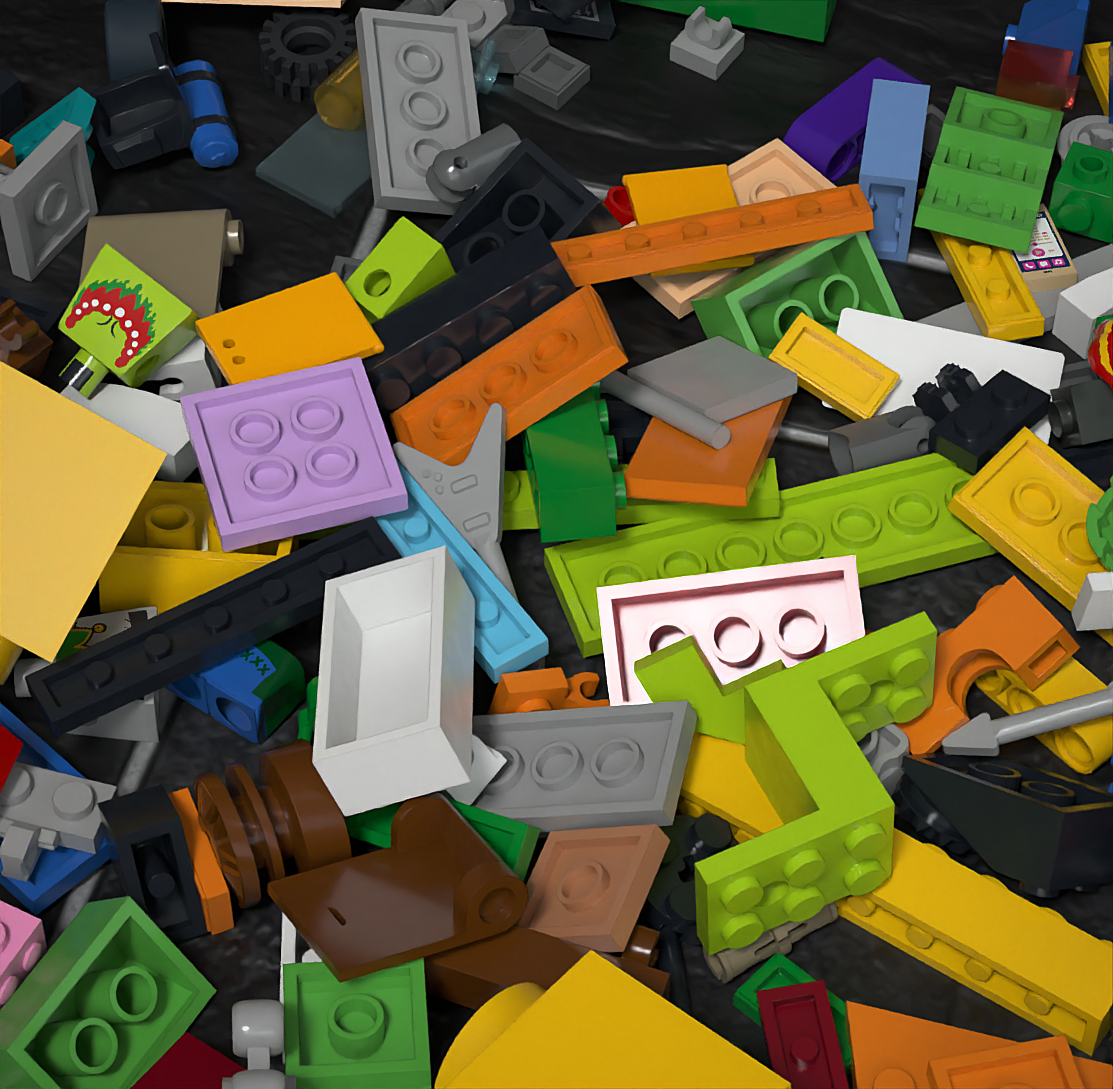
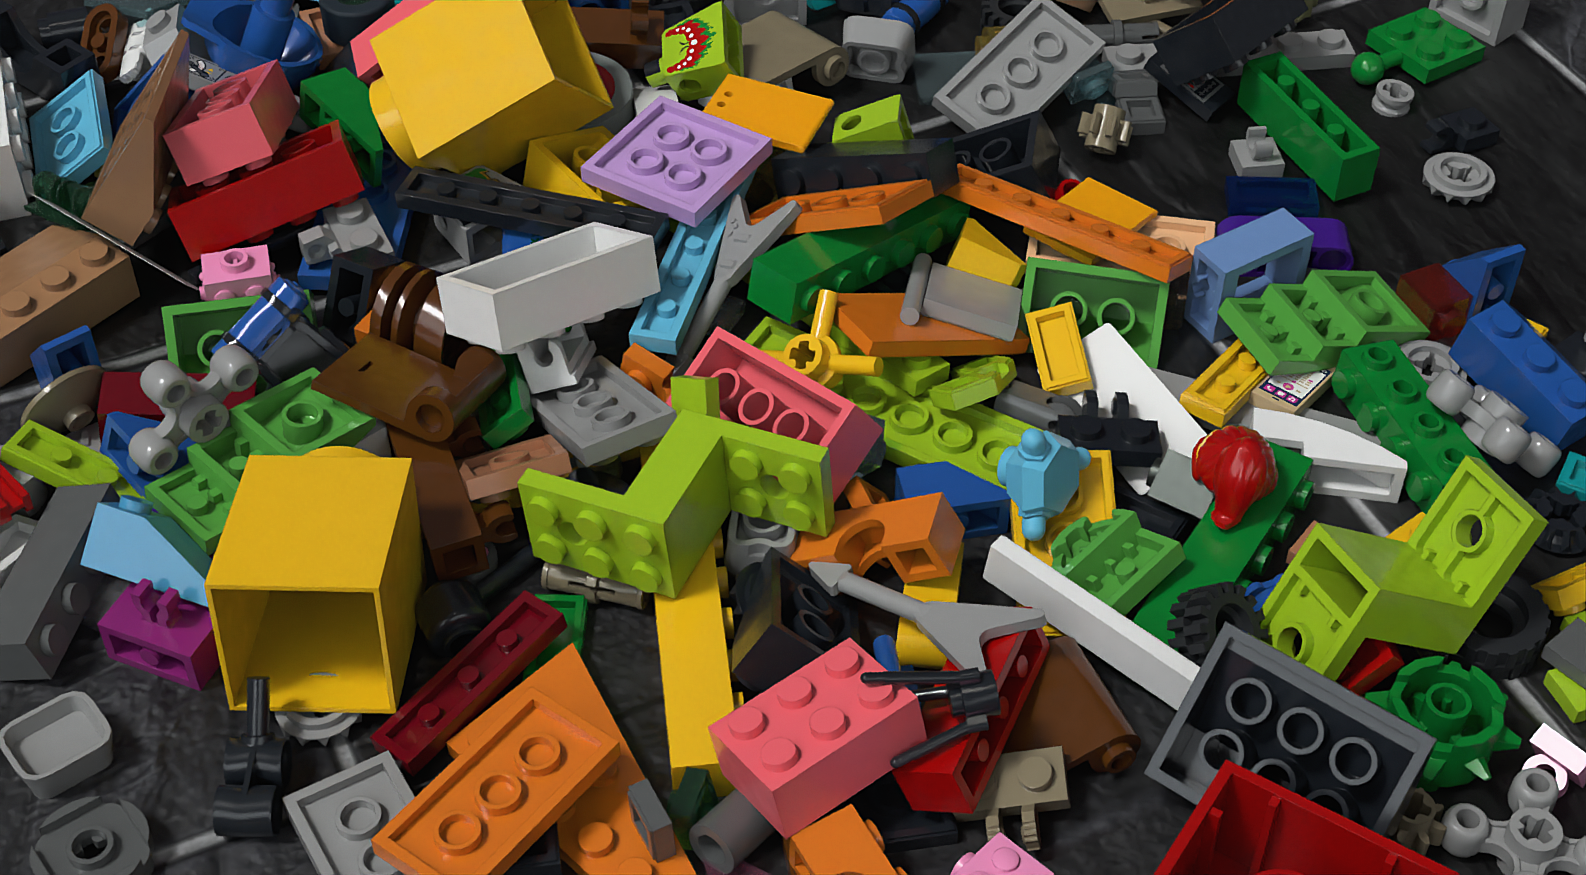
camera: 50 degrees right, 5 degrees down
(178, 976) = (282, 335): none -> black piece
(244, 179) = (878, 48): none -> light grey piece
(464, 169) = (992, 107): dark grey piece -> none
(561, 114) = (1105, 129): none -> dark tan gear
(655, 328) = (985, 256): none -> yellow slope
(692, 529) = (819, 355): none -> yellow bar
(769, 77) = (1267, 194): none -> clear blue tile
(828, 456) = (974, 382): none -> lime tile
(940, 581) = (977, 502): none -> blue slope
(1030, 500) = (1041, 477): none -> medium azure rock

